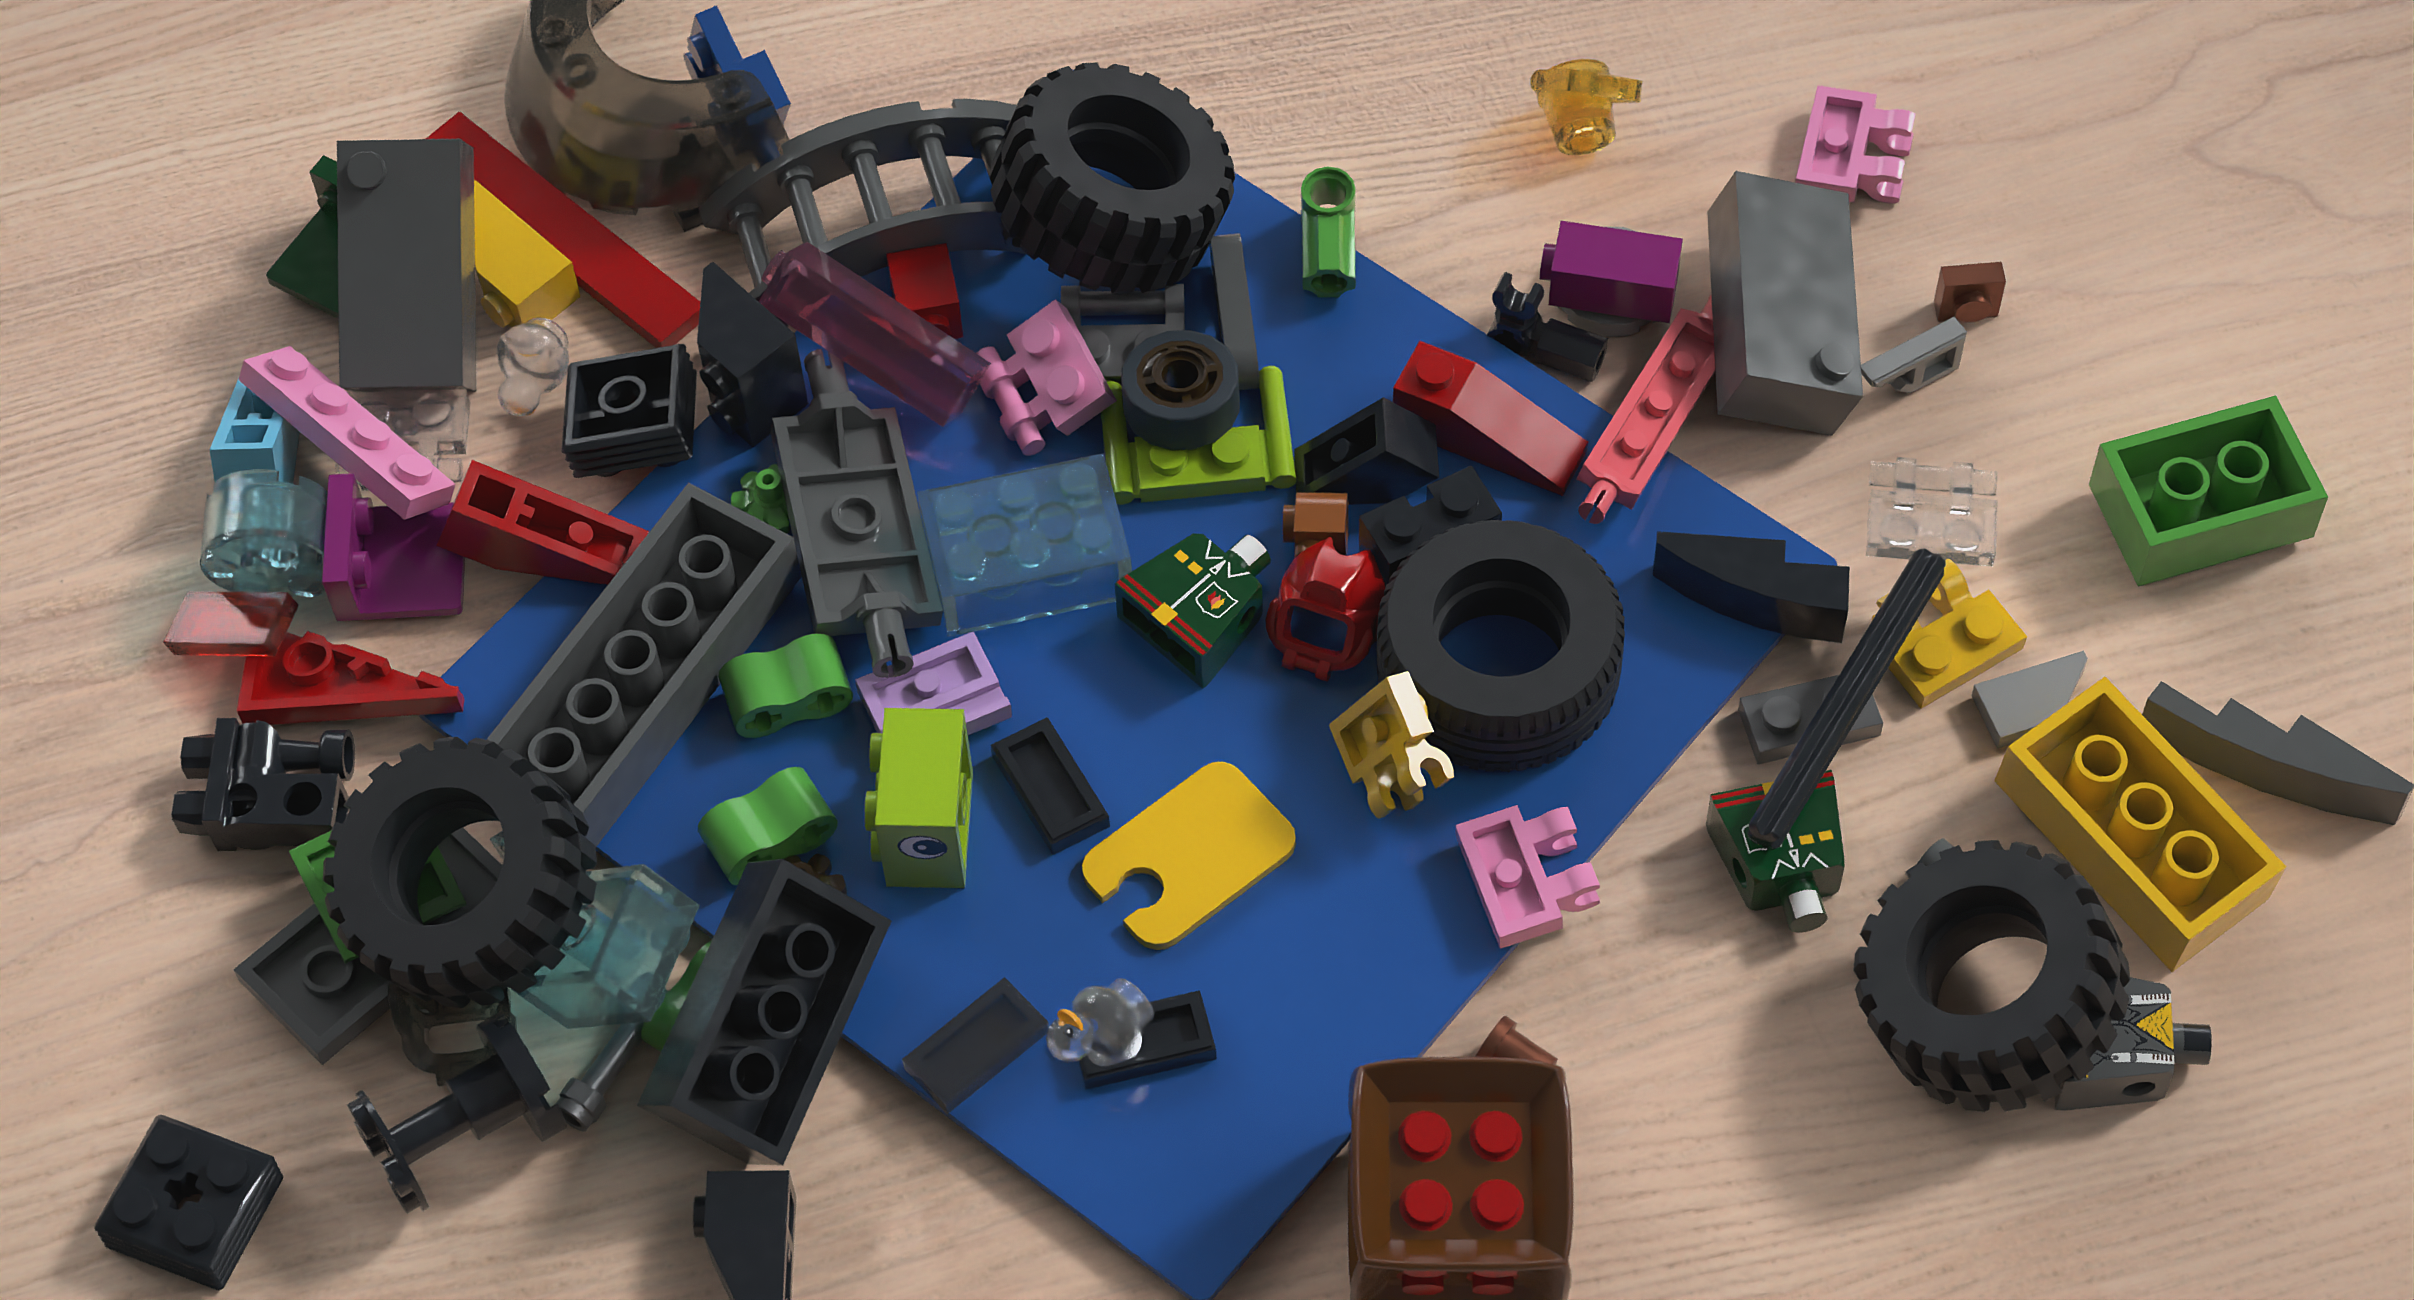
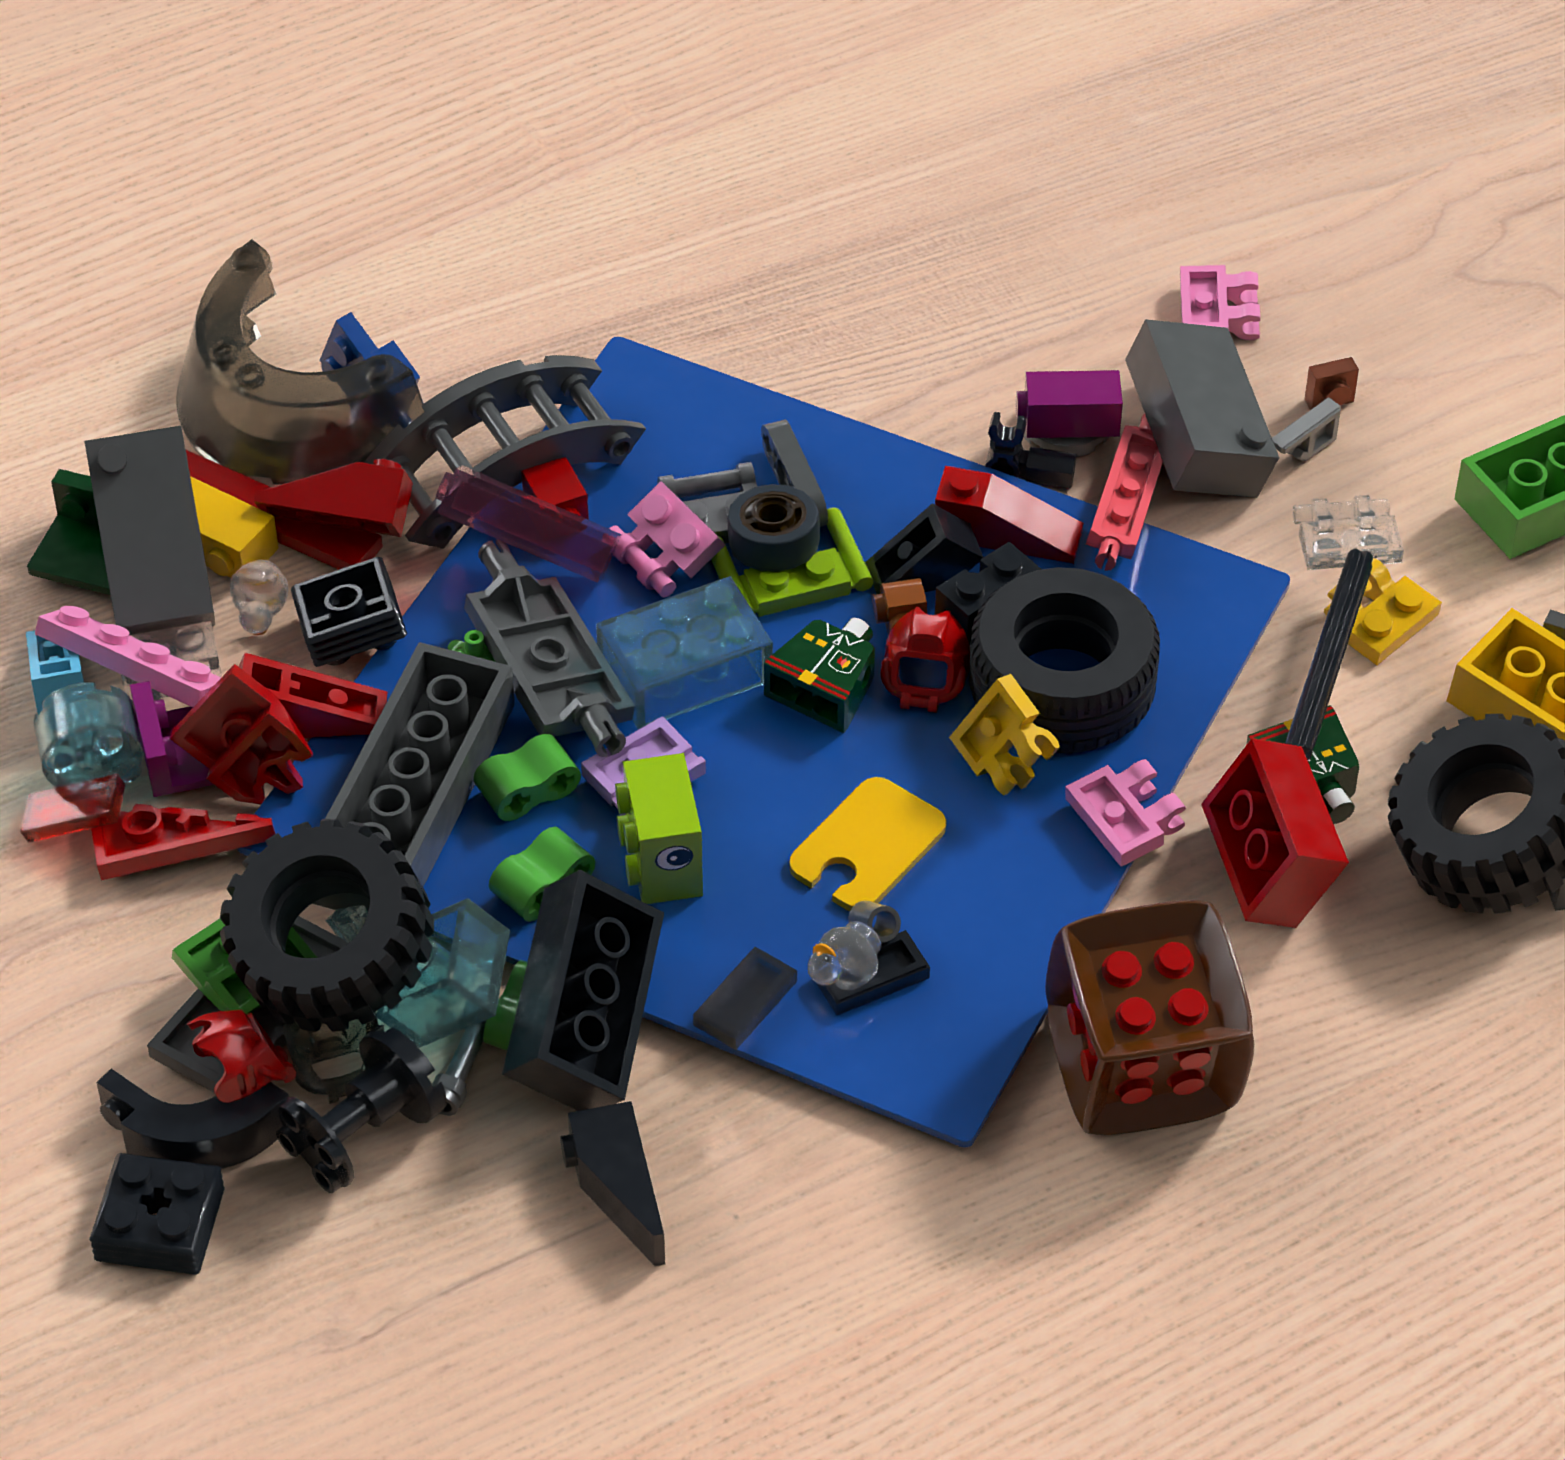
camera: 15 degrees left, 10 degrees down
(252, 797) = (130, 916): black hips -> none
(265, 1106) = (195, 1132): none -> black arch
(321, 1011) = (244, 1050): none -> red helmet
(448, 574) = (243, 738): none -> red plate
(662, 248) = (347, 497): none -> red slope
(746, 360) = (436, 556): black slope -> none
(1050, 785) = (748, 814): black tile -> none
(1090, 223) = (683, 390): black tyre -> none
(1169, 987) = (887, 920): none -> dark grey hinge
(1328, 232) = (849, 411): bright green piece -> none
(1579, 103) = (1009, 301): clear yellow piece -> none
(1704, 946) = (1274, 833): none -> red brick
(1755, 584) = (1237, 593): black slope -> none
(1780, 717) = (1280, 685): flat silver plate -> none
(2027, 697) = (1449, 643): light grey tile -> none

